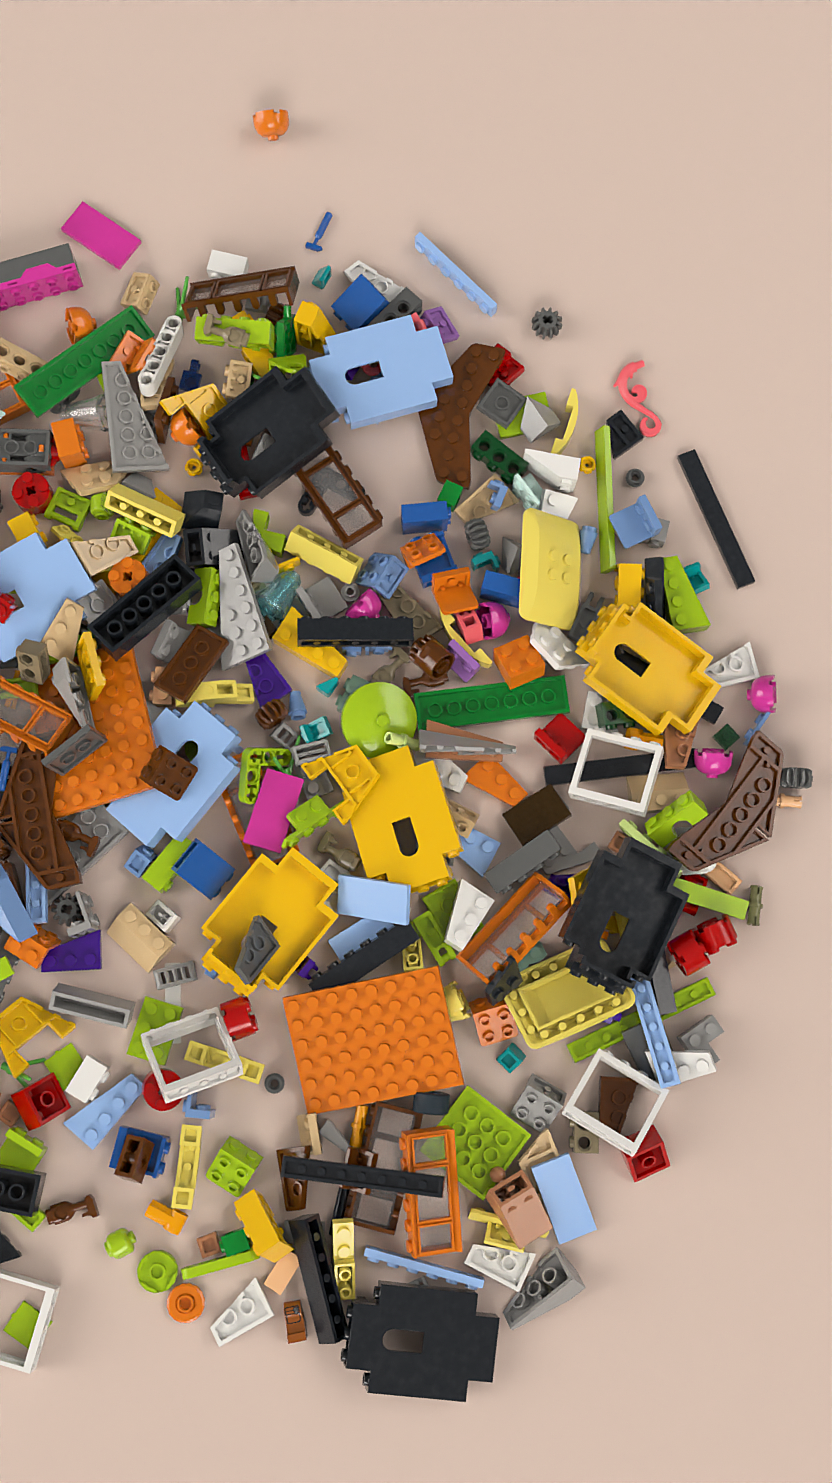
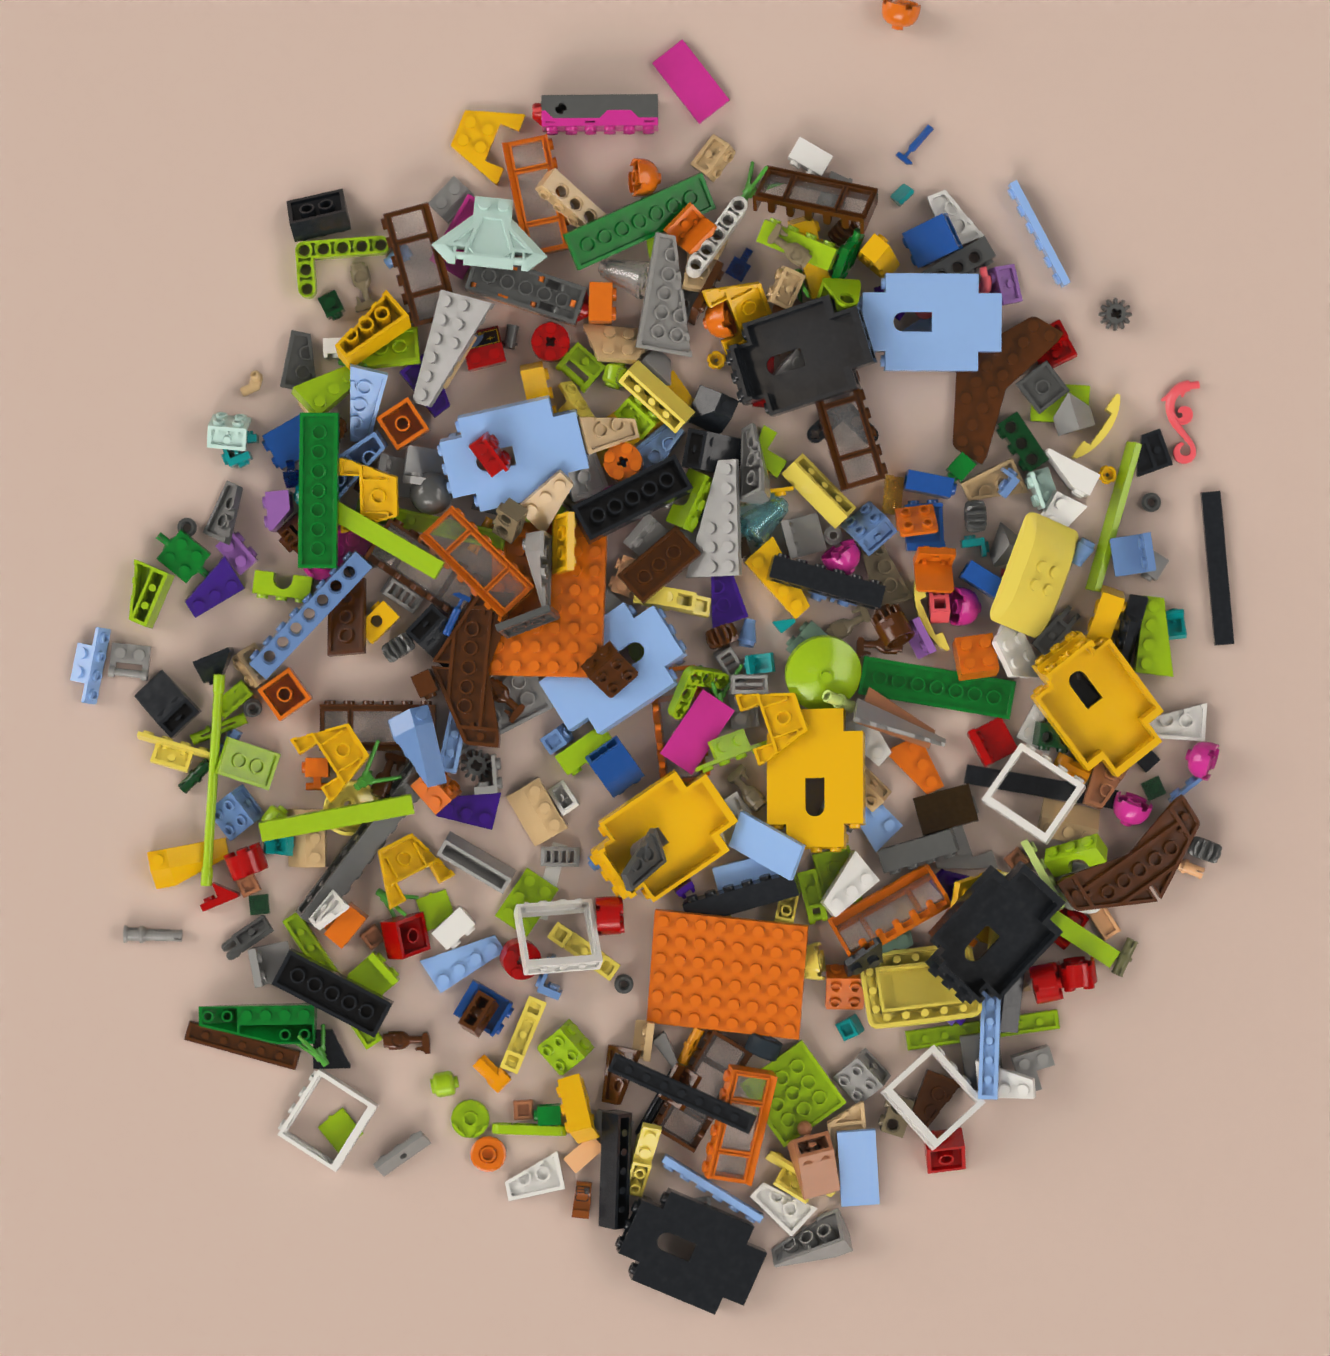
camera: 25 degrees right, 10 degrees up
(96, 1331) = (401, 1153): none -> light grey tile
(393, 537) = (892, 494): none -> clear yellow bracket

